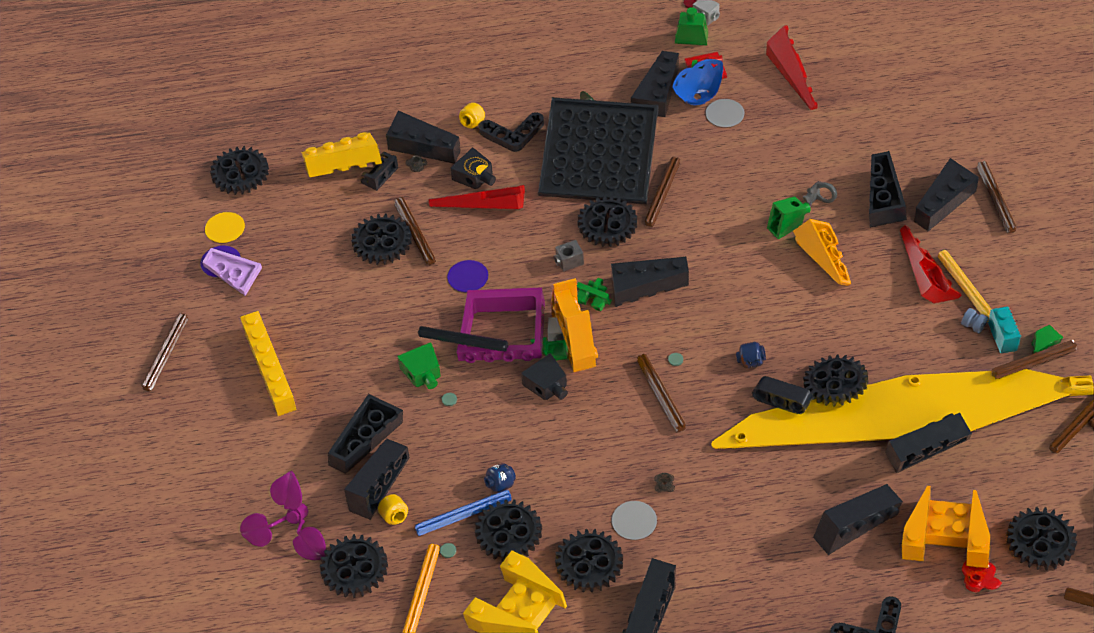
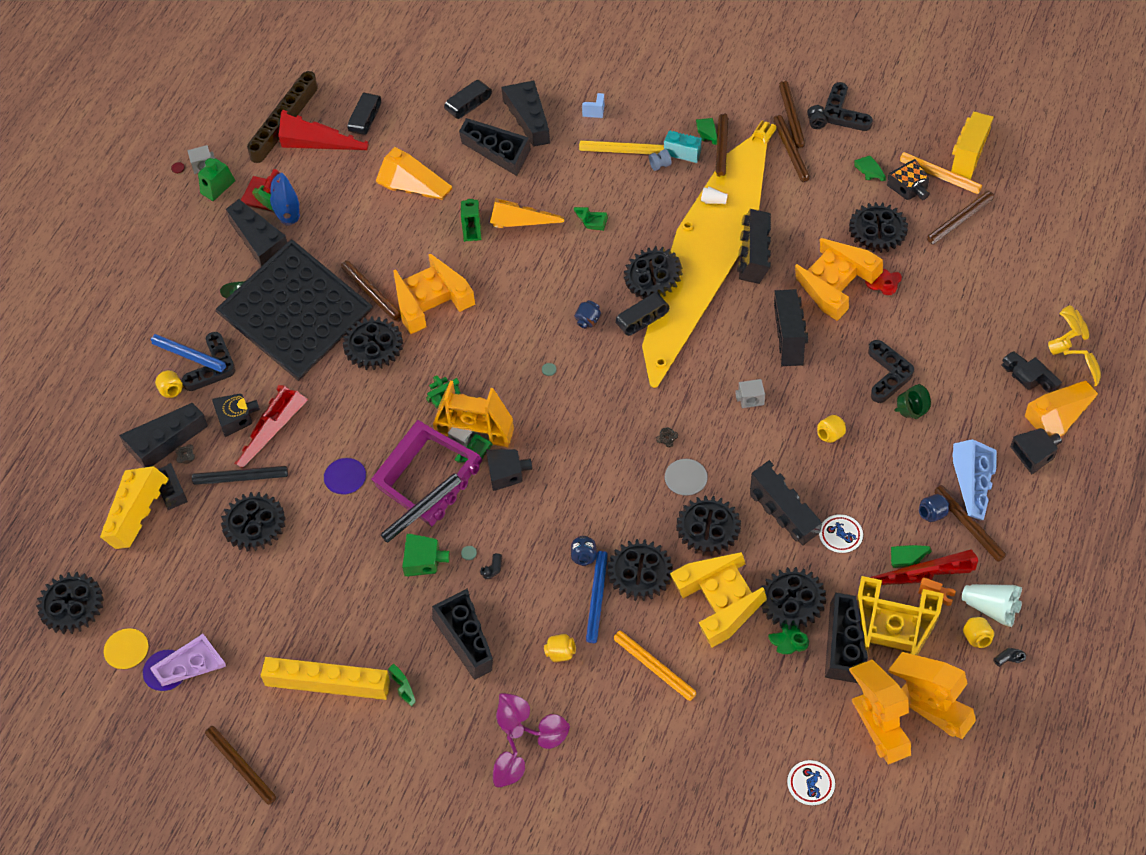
camera: 60 degrees left, 5 degrees up
(292, 421) = (404, 690): none -> green slope
(353, 566) = (617, 709): black gear -> none
(376, 478) = (519, 644): black wedge -> none
(416, 233) = (276, 492): reddish brown axle -> none
(421, 208) = (239, 475): none -> black axle
(443, 424) = (494, 569): none -> black arm
(448, 550) = (625, 626): sand green piece -> none
(509, 110) = (188, 353): none -> blue axle
(569, 255) = (390, 382): flat silver brick -> none
(647, 277) = (455, 347): black wedge -> none
(661, 393) = (577, 395): reddish brown axle -> none
(686, 227) = (429, 290): none -> light orange wedge
(725, 113) = (320, 206): light grey sticker -> none
(757, 524) = (750, 393): none -> light grey brick
(764, 609) = (831, 428): none -> yellow head
(802, 34) = (293, 103): none -> dark brown beam
(802, 152) = (406, 173): none -> light orange wedge
(814, 193) = (458, 190): dark grey piece -> none
(844, 85) = (364, 113): none -> black beam
(864, 306) = (591, 220): none -> green slope
(923, 145) = (468, 99): none -> black beam
(927, 272) = (600, 164): red wedge -> none
(961, 381) = (713, 196): none -> white cone
(995, 241) = (594, 109): none -> light blue panel
(996, 197) = (553, 84): reddish brown axle -> none

